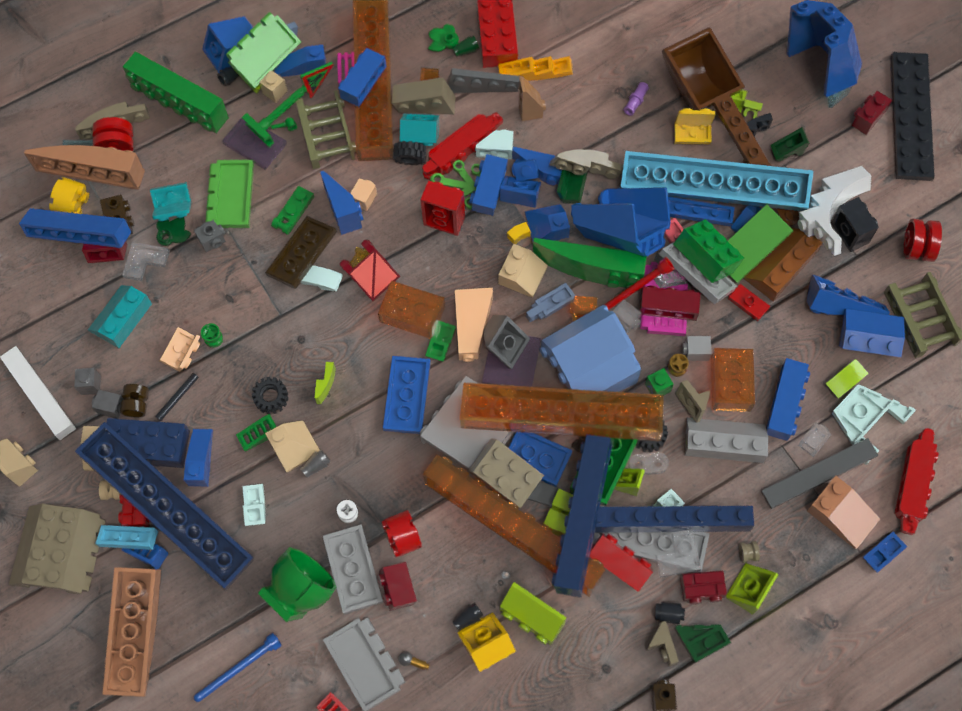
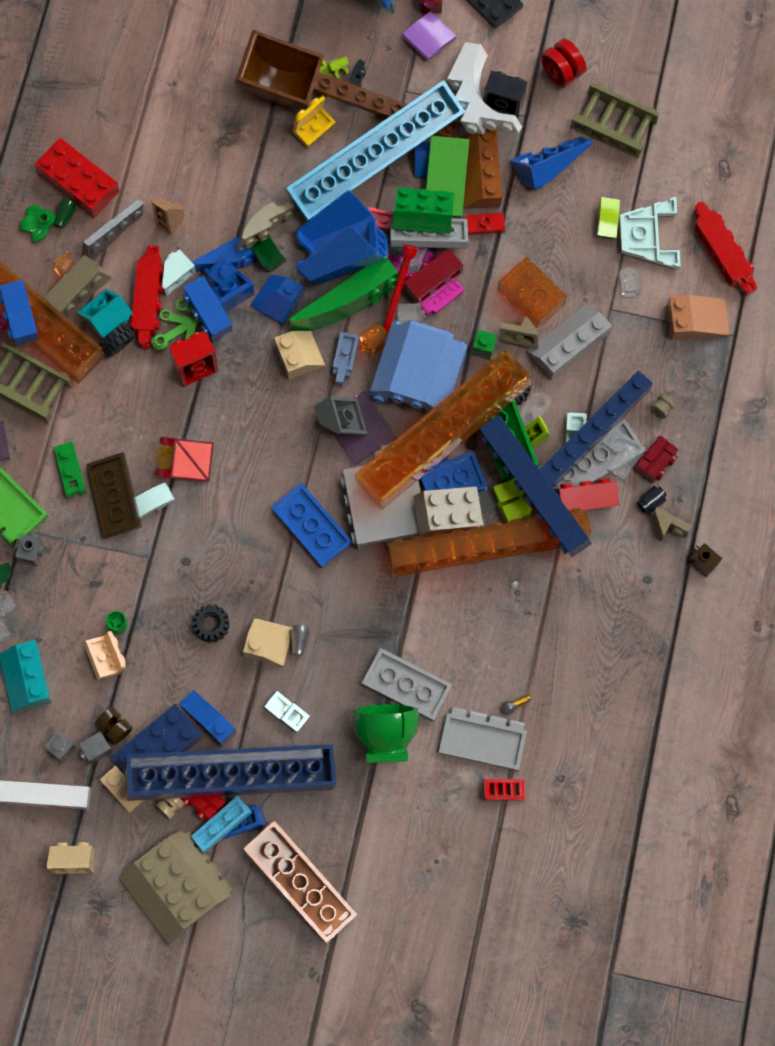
camera: 50 degrees left, 5 degrees up
(176, 397) = (140, 693): black bar -> none
(254, 428) = (227, 676): green slope -> none
(271, 643) = (405, 791): blue piece -> none
(324, 386) = (244, 578): lime slope -> none
(343, 205) = (110, 429): blue slope -> none
(348, 515) = (359, 653): white wheel -> none
(364, 192) = (113, 406): light nougat brick -> none
(397, 586) = (452, 664): dark red brick -> none
(401, 534) = (418, 624): red brick -> none
(411, 309) = (248, 459): clear orange brick -> none
(441, 341) = (293, 462): green slope -> none
(470, 615) = (521, 636): black cone -> none
(472, 317) = (299, 424): light nougat slope -> none
(486, 642) = (551, 640): yellow slope -> none
(518, 233) = (264, 326): yellow piece -> none
(532, 614) = (564, 590): lime slope -> none
(538, 69) = (140, 182): light orange slope -> none
(636, 99) = (243, 137): medium lavender pin -> none
(678, 360) = (484, 314): pearl gold wheel -> none
(697, 348) = (484, 292): light grey brick -> none
(700, 211) = (384, 183): blue plate -> none
(702, 640) = (691, 496): dark green wing -> none
(751, 587) = (689, 428): lime slope -> none
(787, 398) = (582, 271): blue brick -> none
(792, 143) = (397, 70): dark green slope -> none
(819, 473) = (656, 305): dark grey tile -> none
(840, 142) = (429, 36): none -> medium lavender slope
(872, 333) = (595, 167): blue slope -> none
(885, 552) = (749, 319): blue slope -> none

